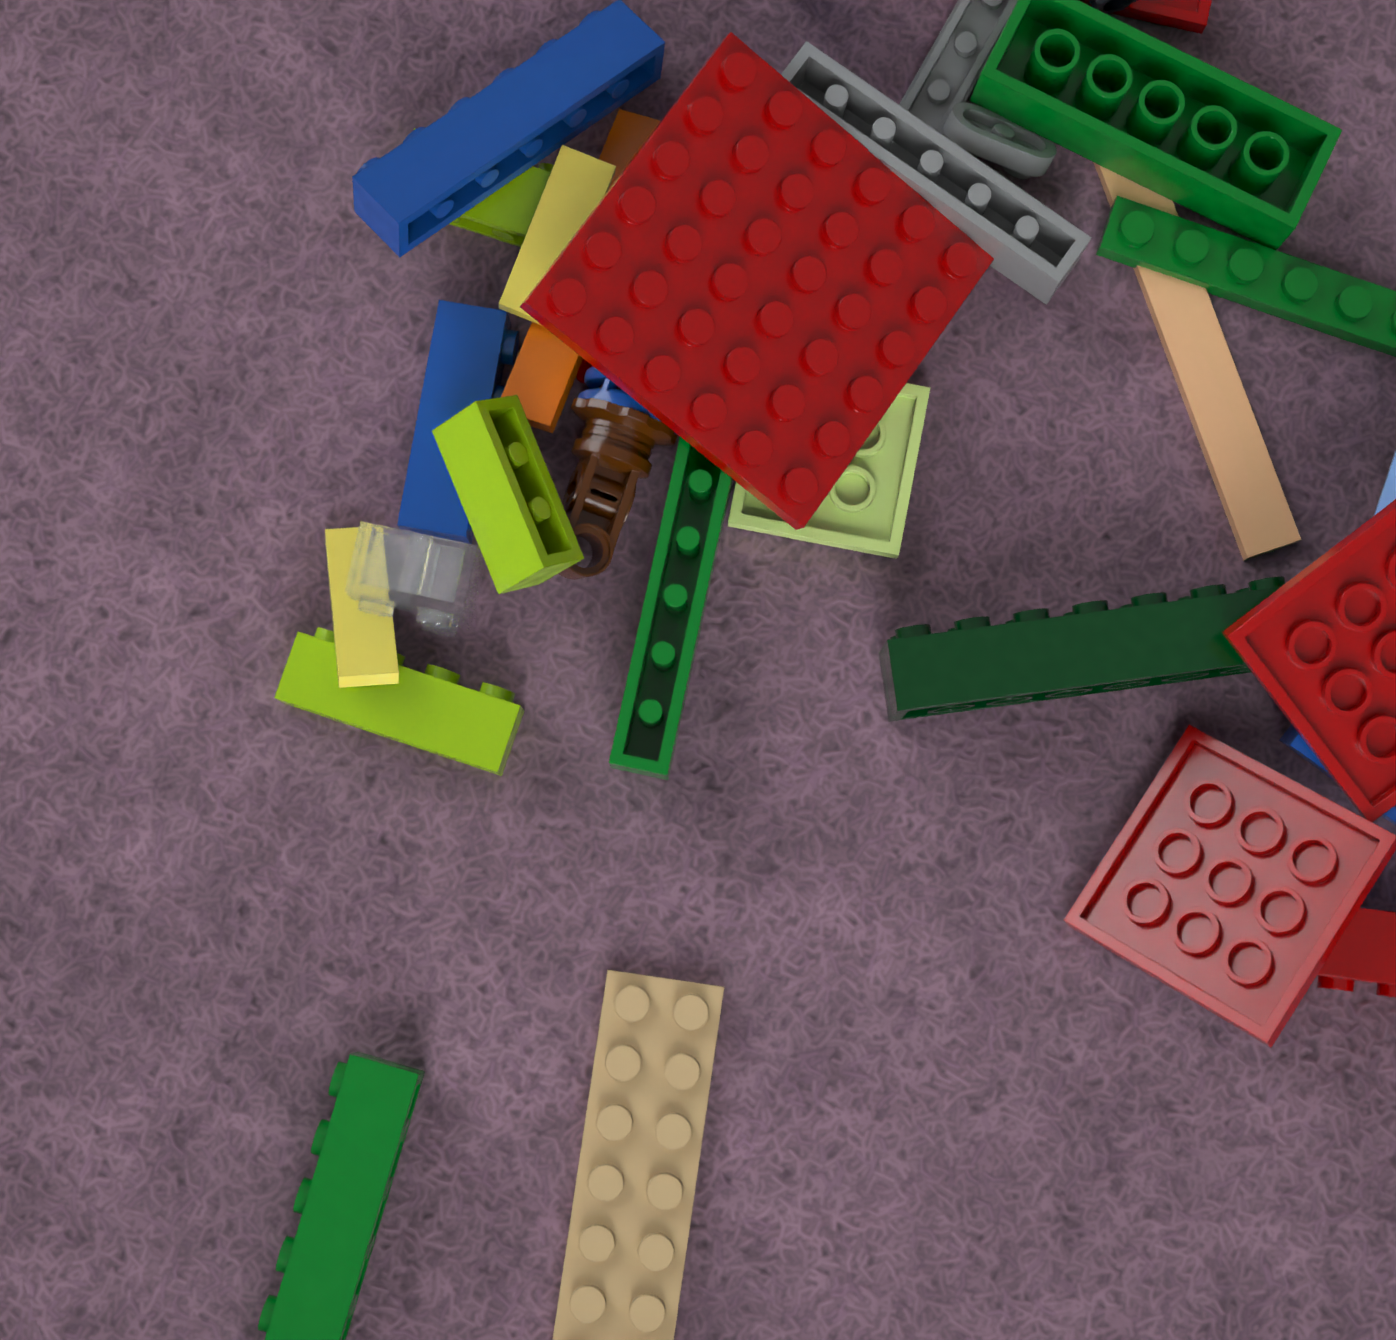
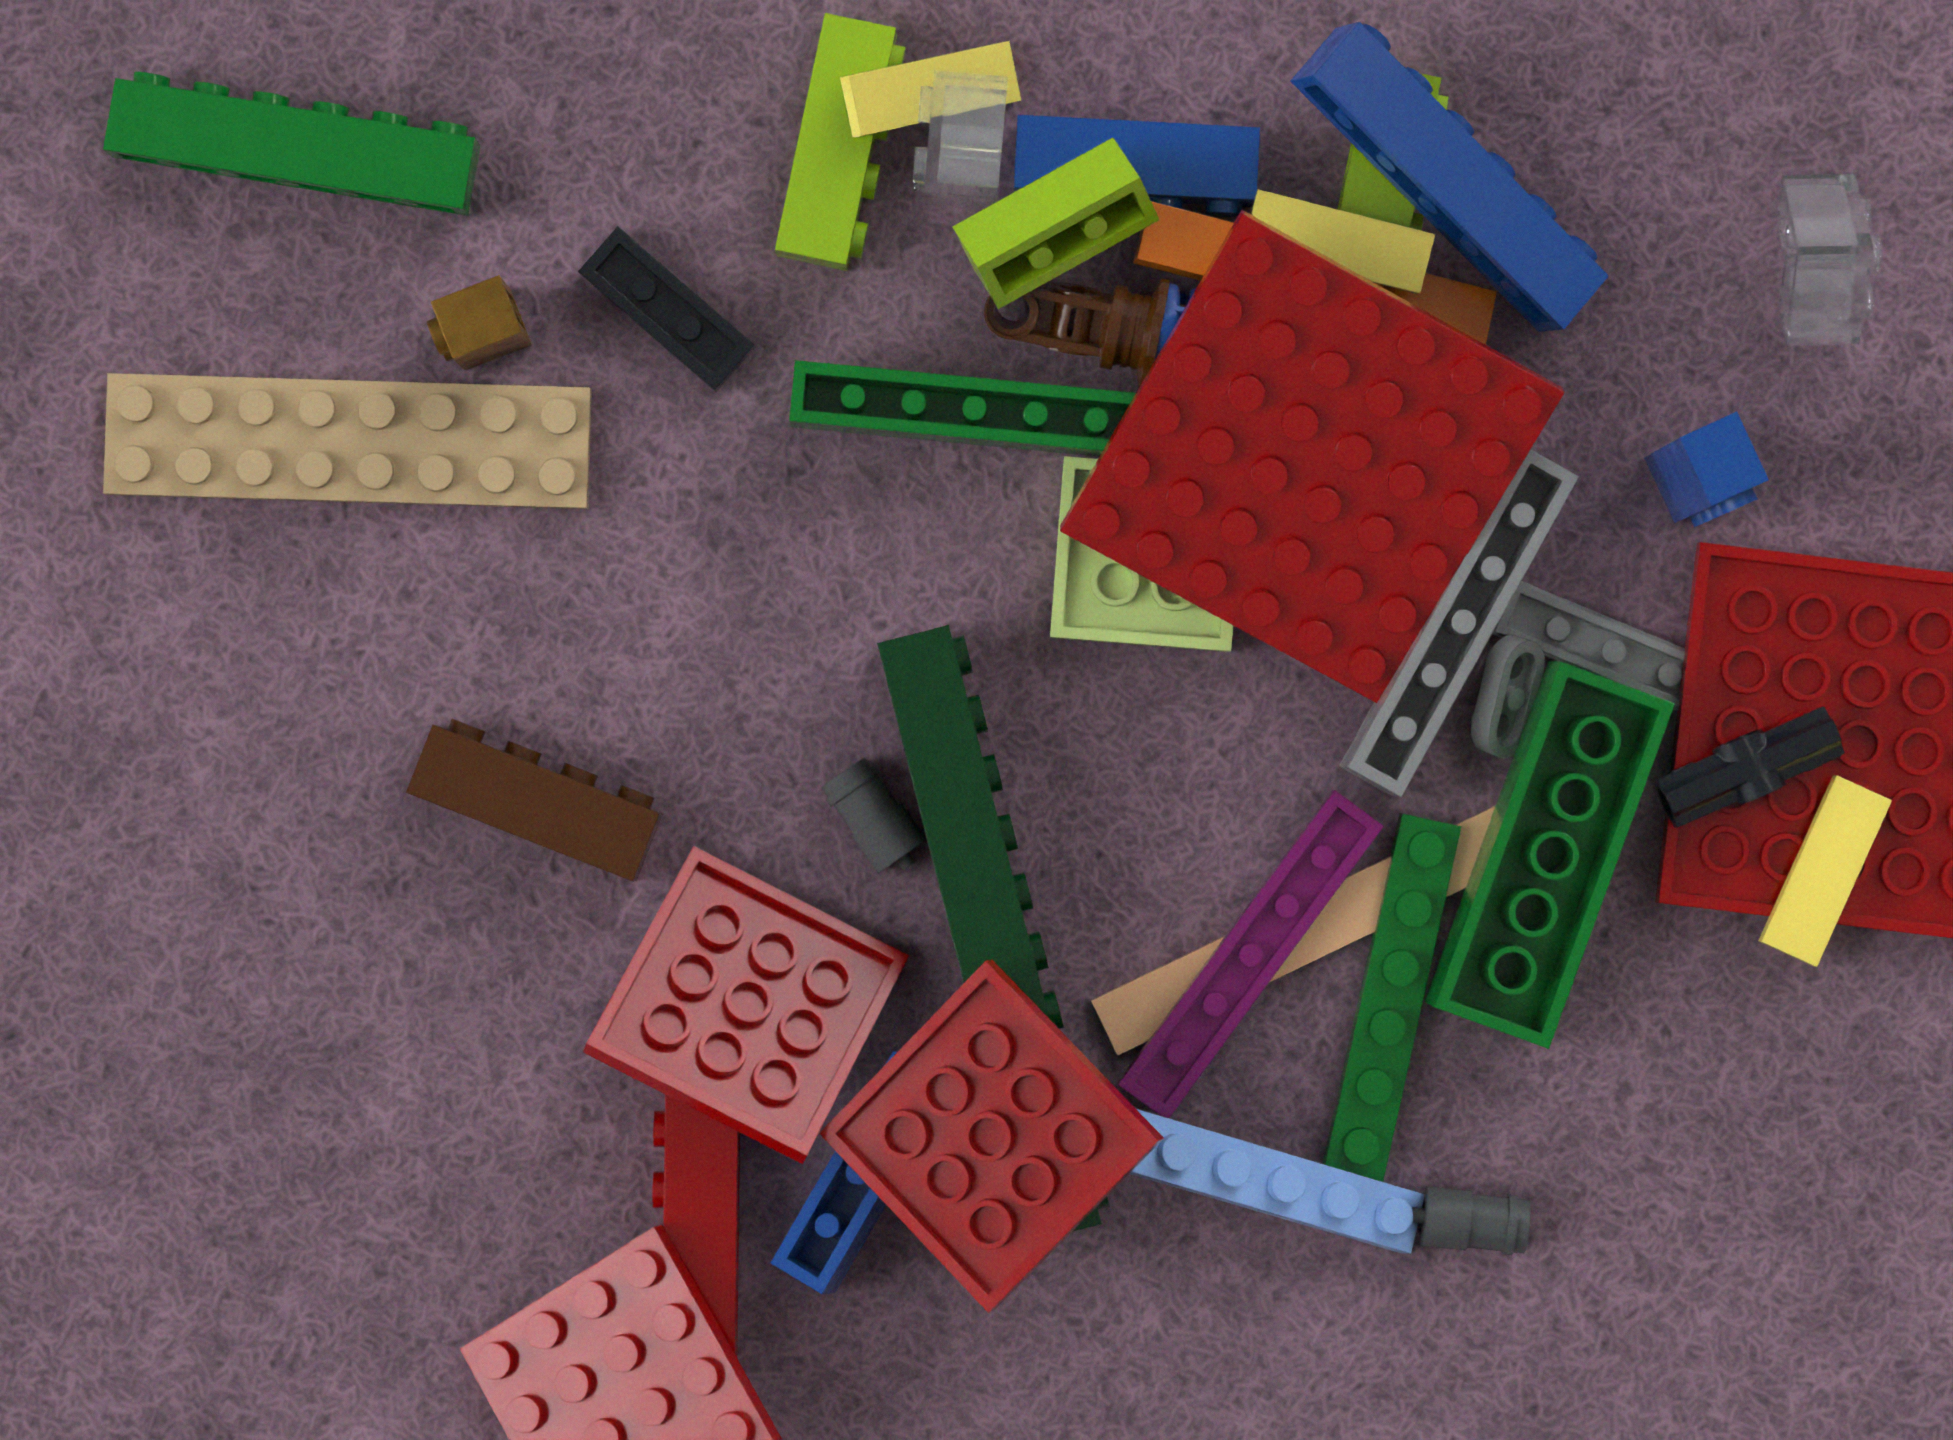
camera: 75 degrees right, 5 degrees up
(534, 1072) = (478, 324): none -> pearl gold brick
(540, 887) = (666, 309): none -> black plate
(1006, 1070) = (535, 802): none -> reddish brown brick
(1054, 741) = (876, 819): none -> dark grey piece
(1222, 401) = (1250, 954): none -> magenta plate

